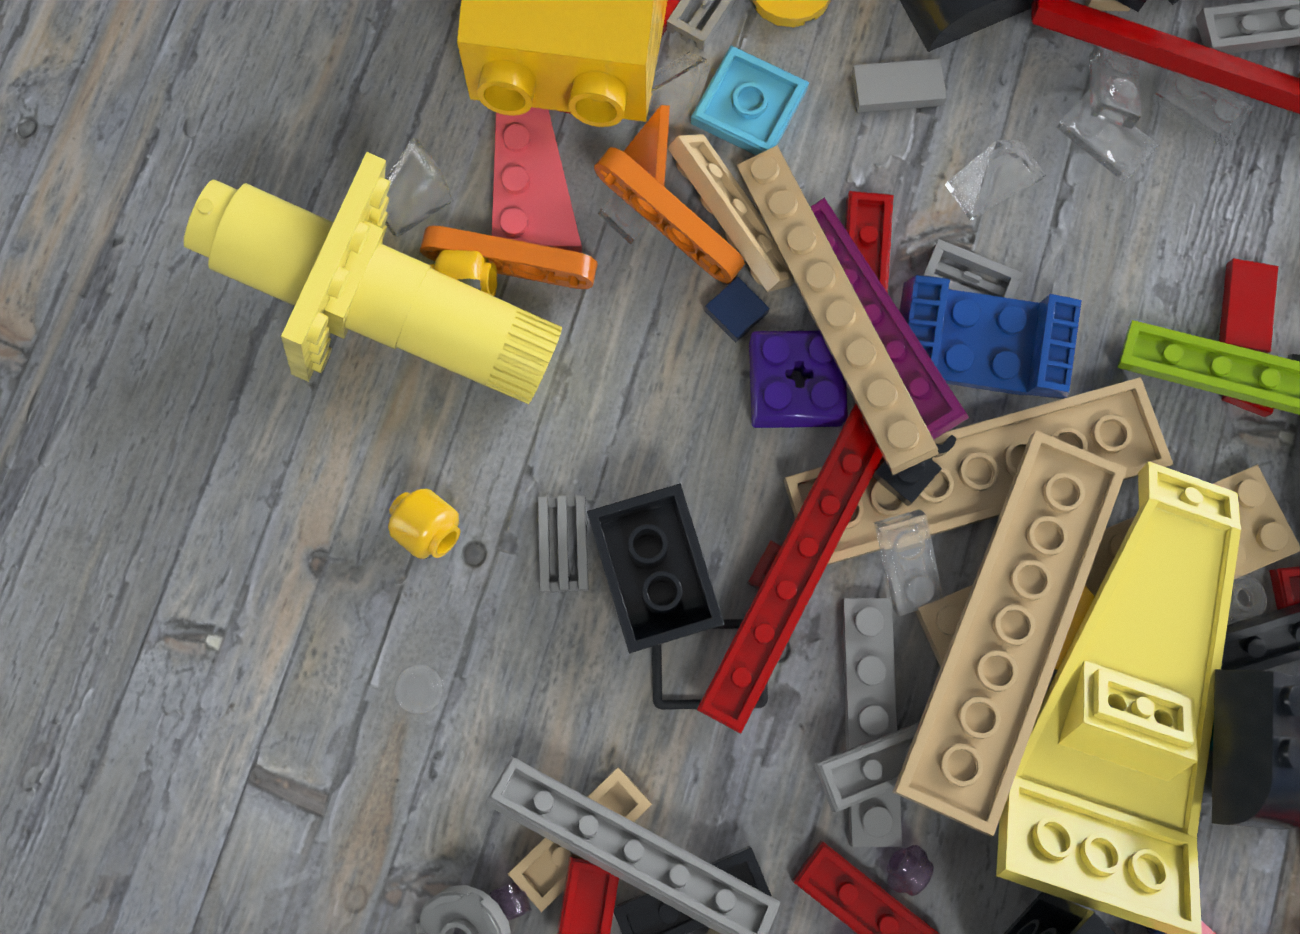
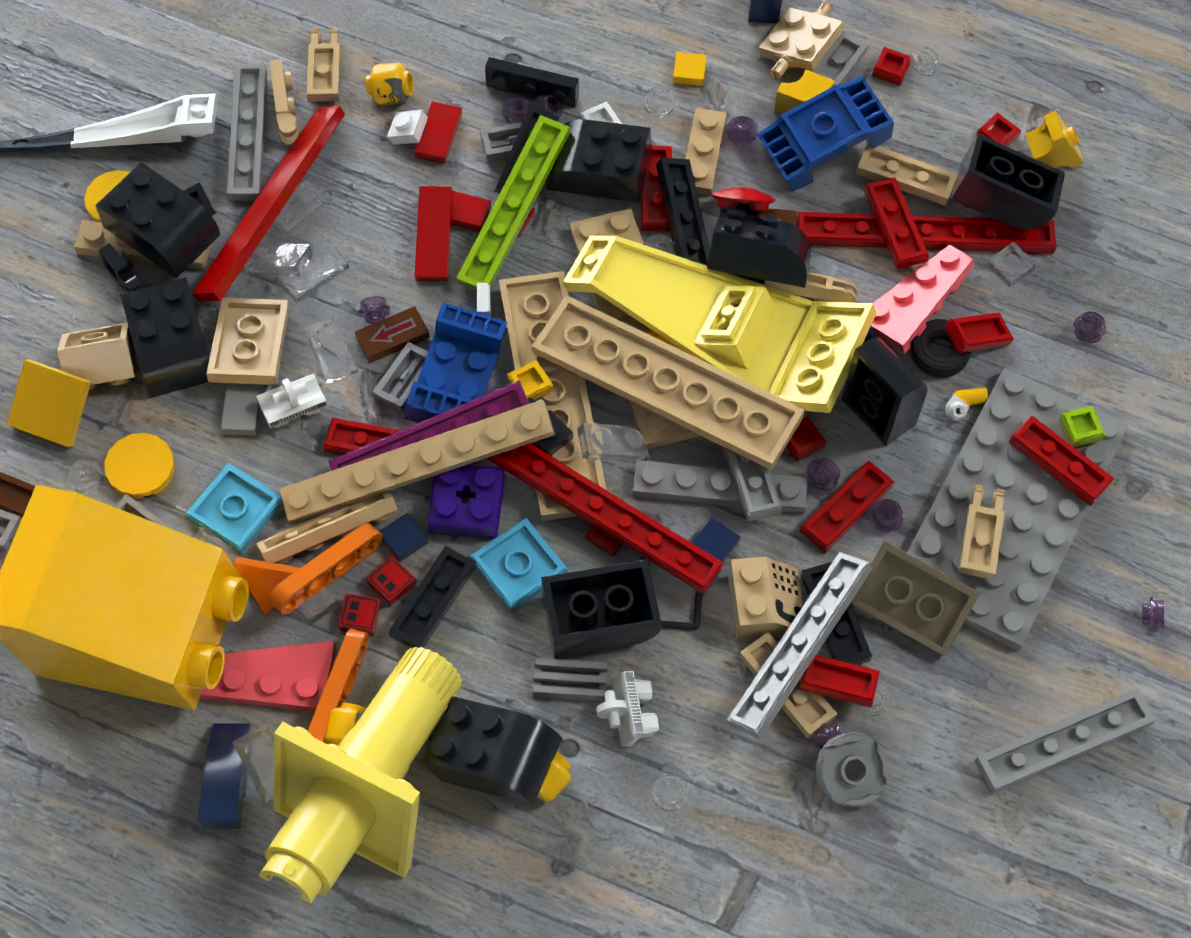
camera: 85 degrees left, 15 degrees down
(350, 139) = (223, 779): none -> dark blue slope
(436, 452) = (492, 750): none -> black brick
(503, 630) = (624, 710): none -> white hips
(623, 272) = (359, 613): none -> red tile
(651, 355) = (432, 598): none -> black plate
(673, 302) = (391, 580): none -> red tile
(704, 799) = (763, 597): none -> tan slope
(717, 459) = (516, 563): none -> medium azure tile
(784, 721) = (717, 540): none -> dark blue tile
(905, 138) = (291, 401): none -> white hips
(963, 843) = (805, 440): none -> red tile
(983, 72) = (248, 341): none -> tan plate
(983, 437) = (533, 379): none -> yellow tile
(1032, 252) = (391, 334): none -> reddish brown tile
(1063, 222) = (373, 309): none -> clear purple plate
(1098, 362) = (483, 299): none -> white tile
(1200, 281) = (433, 233): none -> red tile
(1221, 853) = (820, 288): none -> tan hinge

